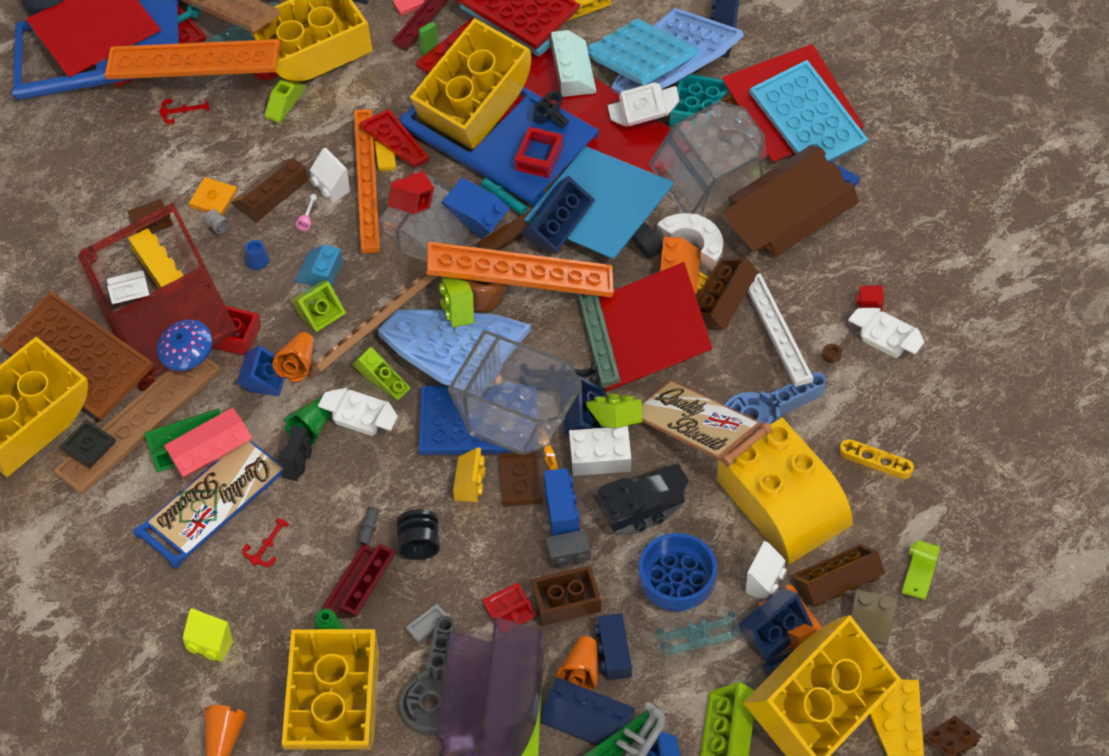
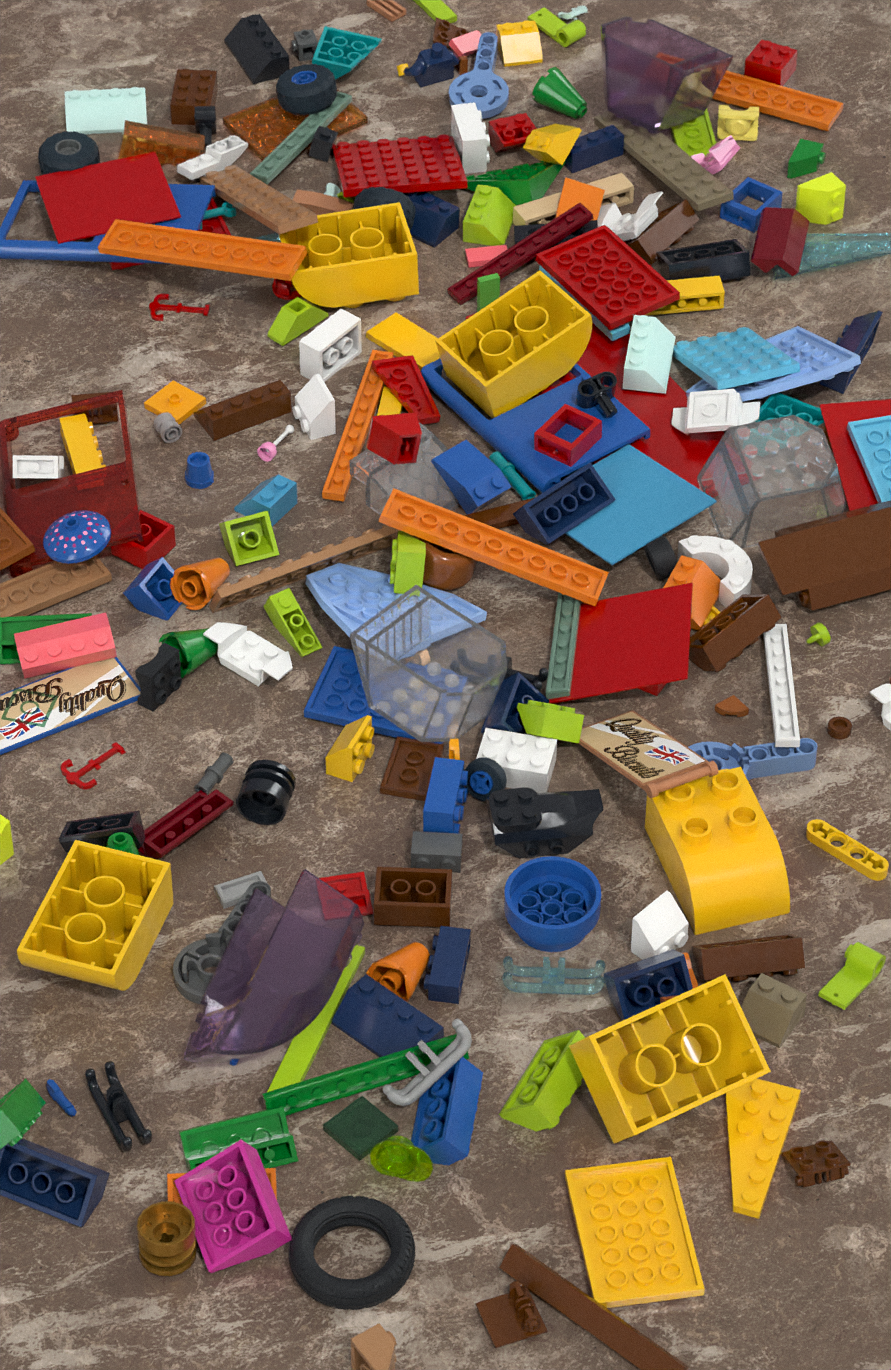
camera: 15 degrees right, 10 degrees down
(301, 608) = (99, 829): none -> black slope
(321, 117) = (330, 345): none -> white brick
(378, 94) = (405, 339): none -> yellow tile
(585, 474) = (485, 778): none -> black wheel
(745, 356) = (732, 706): none -> dark orange tile
(788, 276) = (819, 634): none -> lime tile

